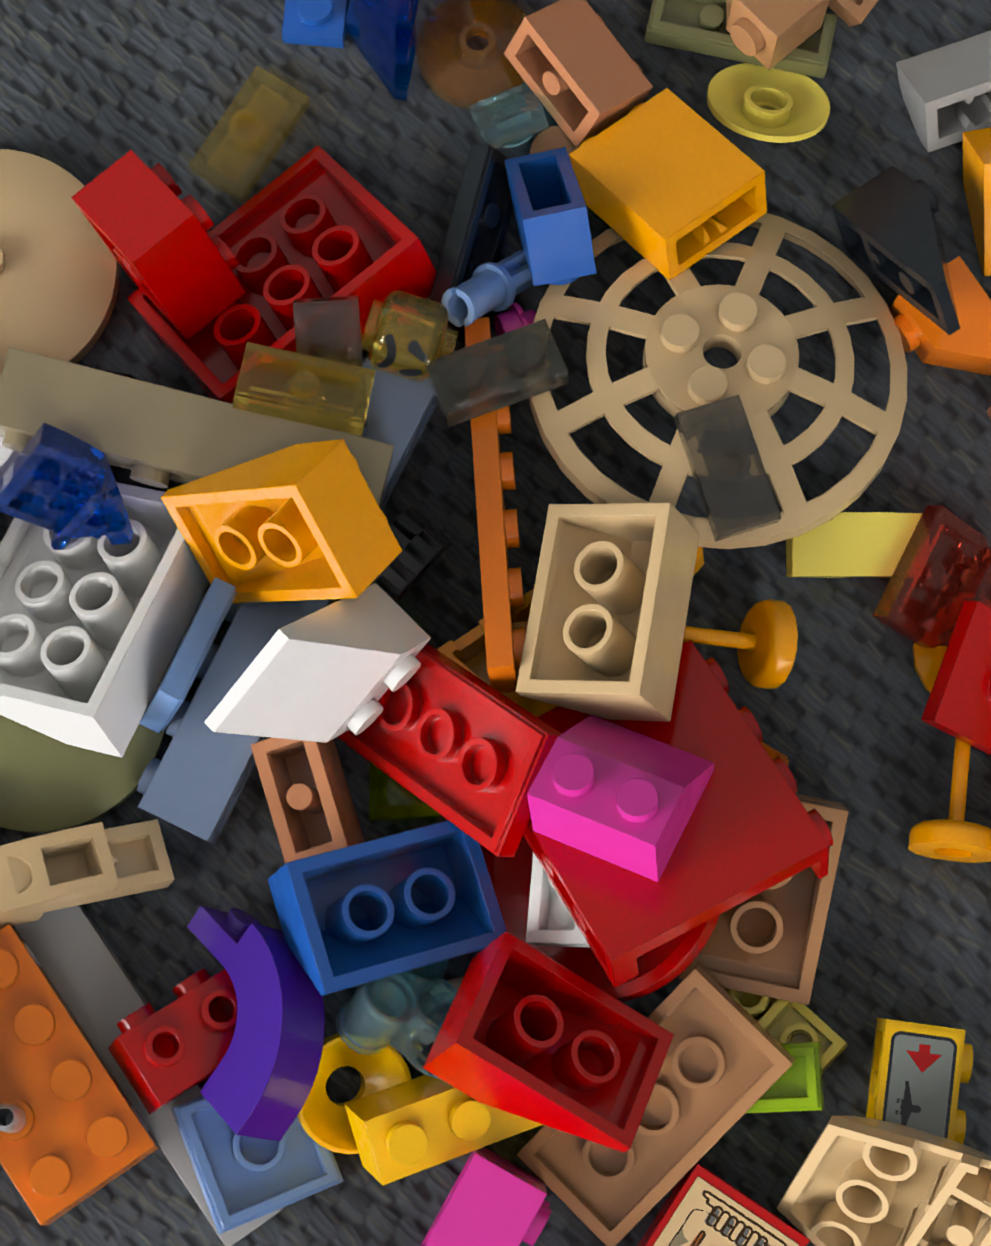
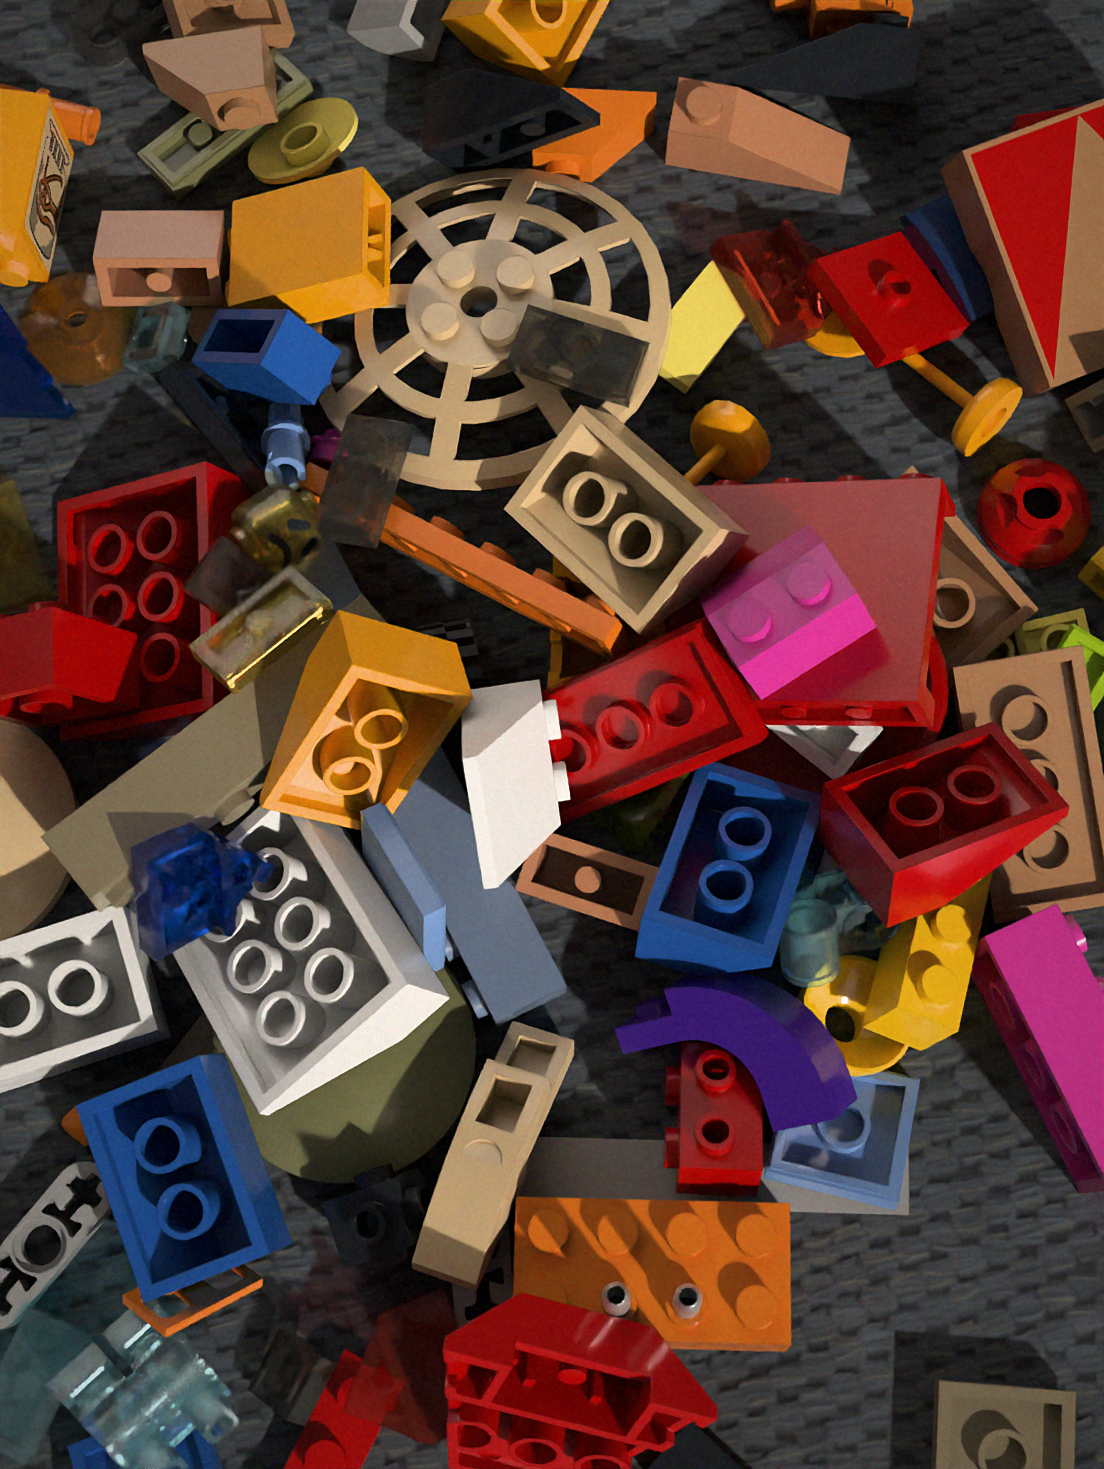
camera: 55 degrees left, 5 degrees down
(871, 949) = (1018, 535): none -> red piece

